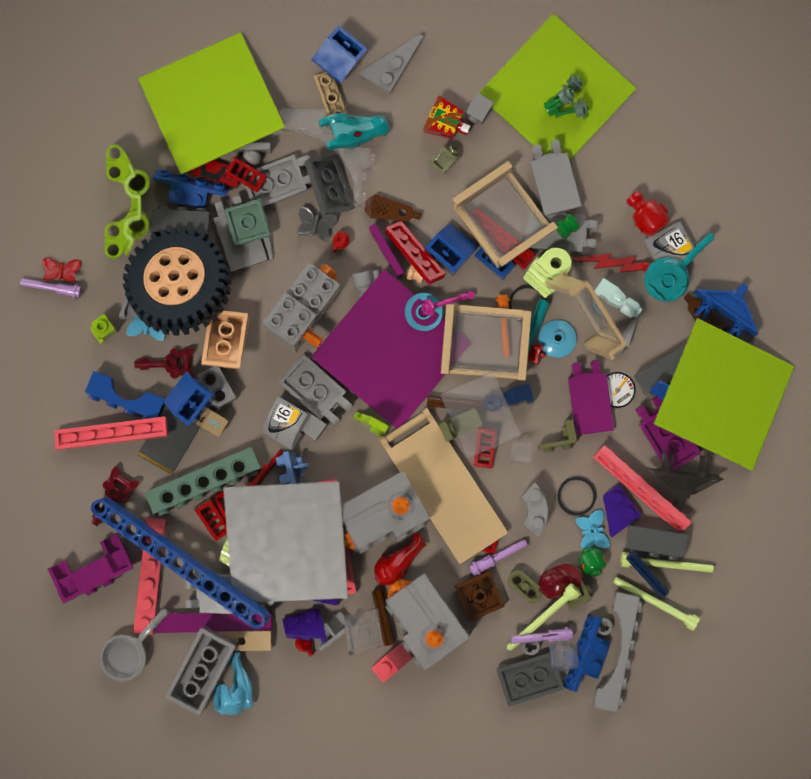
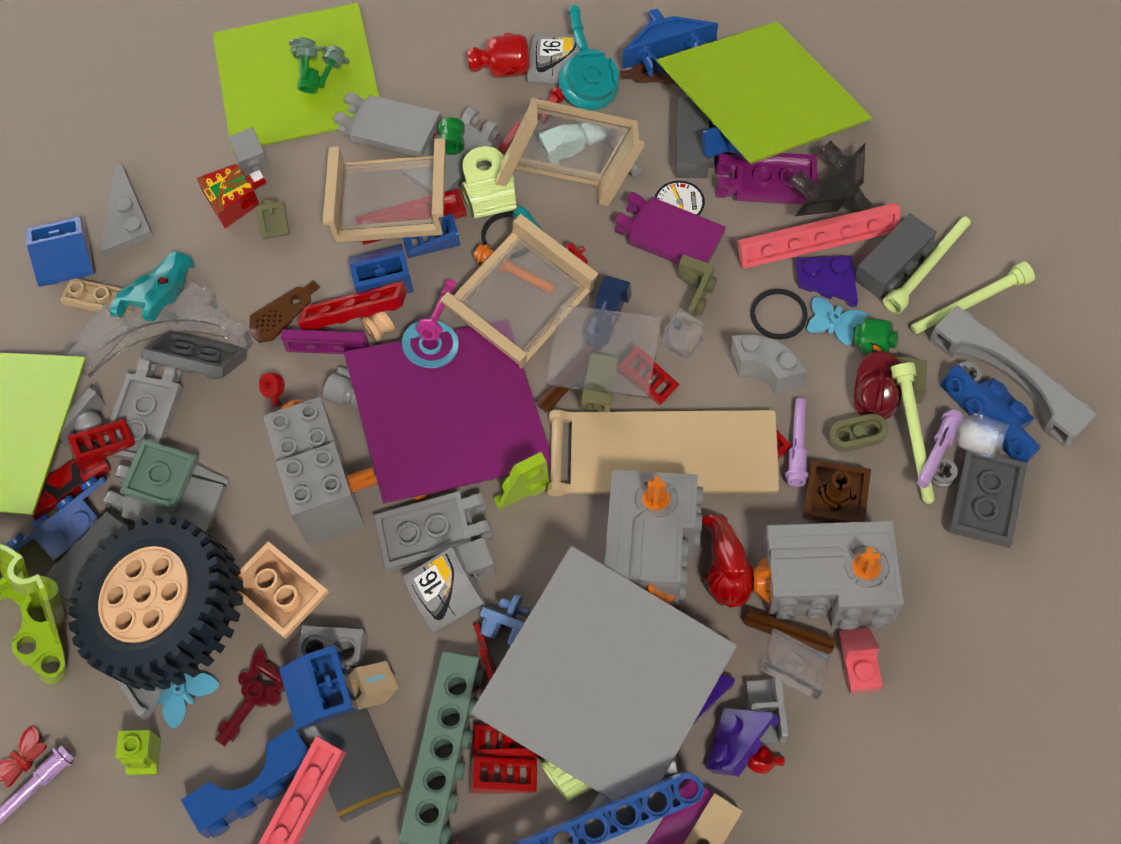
camera: 50 degrees left, 20 degrees down
(314, 225) = (224, 409): dark grey piece -> none
(557, 348) = (581, 234): medium azure dish -> none
(647, 574) = (911, 286): dark blue axle -> none

